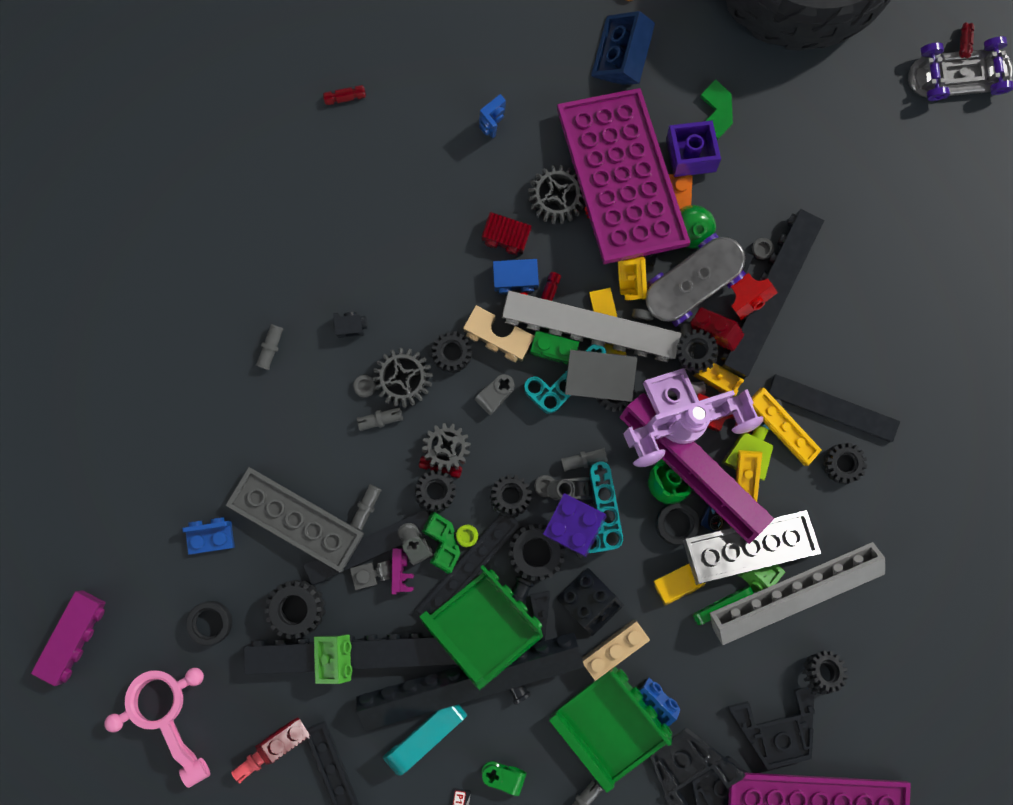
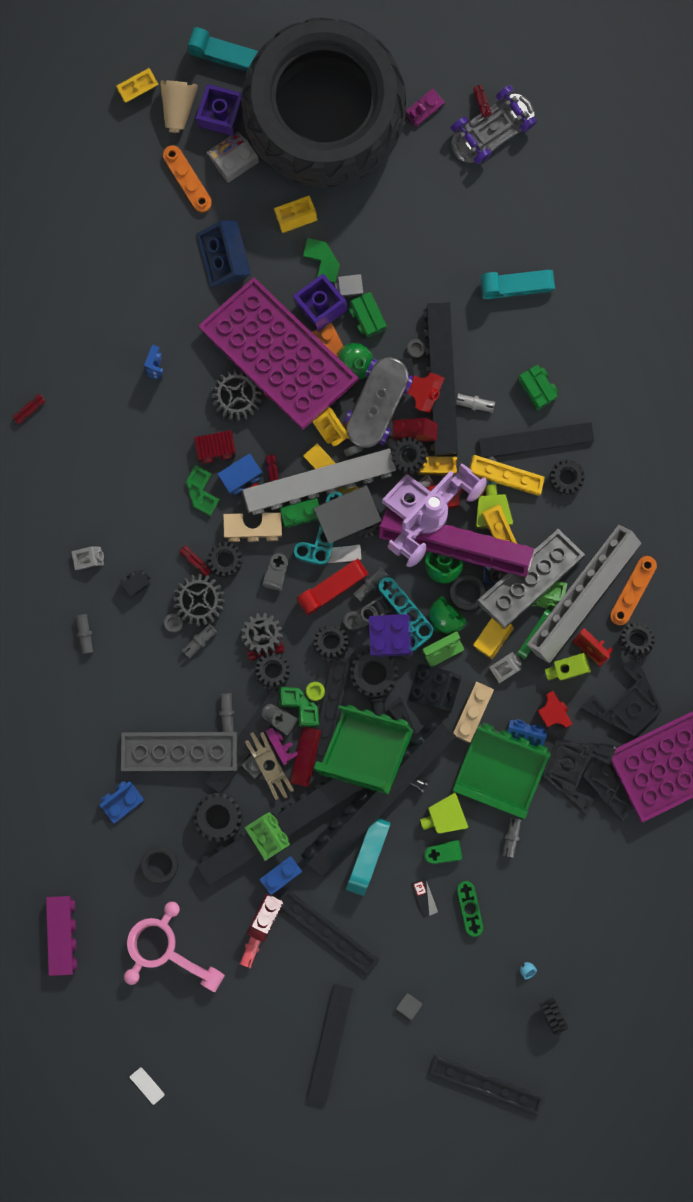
camera: 30 degrees left, 0 degrees up
(317, 273) = (87, 557): none -> light grey bracket
(324, 705) = (280, 875): none -> blue brick
(373, 597) = (271, 776): none -> dark tan piece
(419, 598) = (306, 756): none -> dark red tile
(421, 336) = (195, 561): none -> dark red axle
(466, 261) = (196, 484): none -> green tile
(527, 740) = (445, 816): none -> lime torso
(544, 440) = (332, 587): none -> red beam
(576, 414) = (345, 553): none -> white sticker
(621, 567) = (443, 649): none -> bright green bracket
(641, 537) = (445, 618): none -> green cylinder
(675, 622) = (506, 667): none -> light grey bracket
(698, 697) = (554, 712): none -> red brick
(717, 49) = (295, 214): none -> yellow hinge
(732, 150) = (350, 286): none -> light grey brick
(732, 188) = (368, 315): none -> green brick
(750, 664) = (577, 665): none -> lime torso
(774, 652) = (592, 647): none -> red plate
(792, 336) = (475, 403): none -> light grey pin
(848, 617) = (633, 590): none -> orange plate
(866, 355) = (538, 387): none -> green brick
(900, 240) = (516, 284): none -> teal beam
(903, 16) = (424, 107): none -> magenta plate

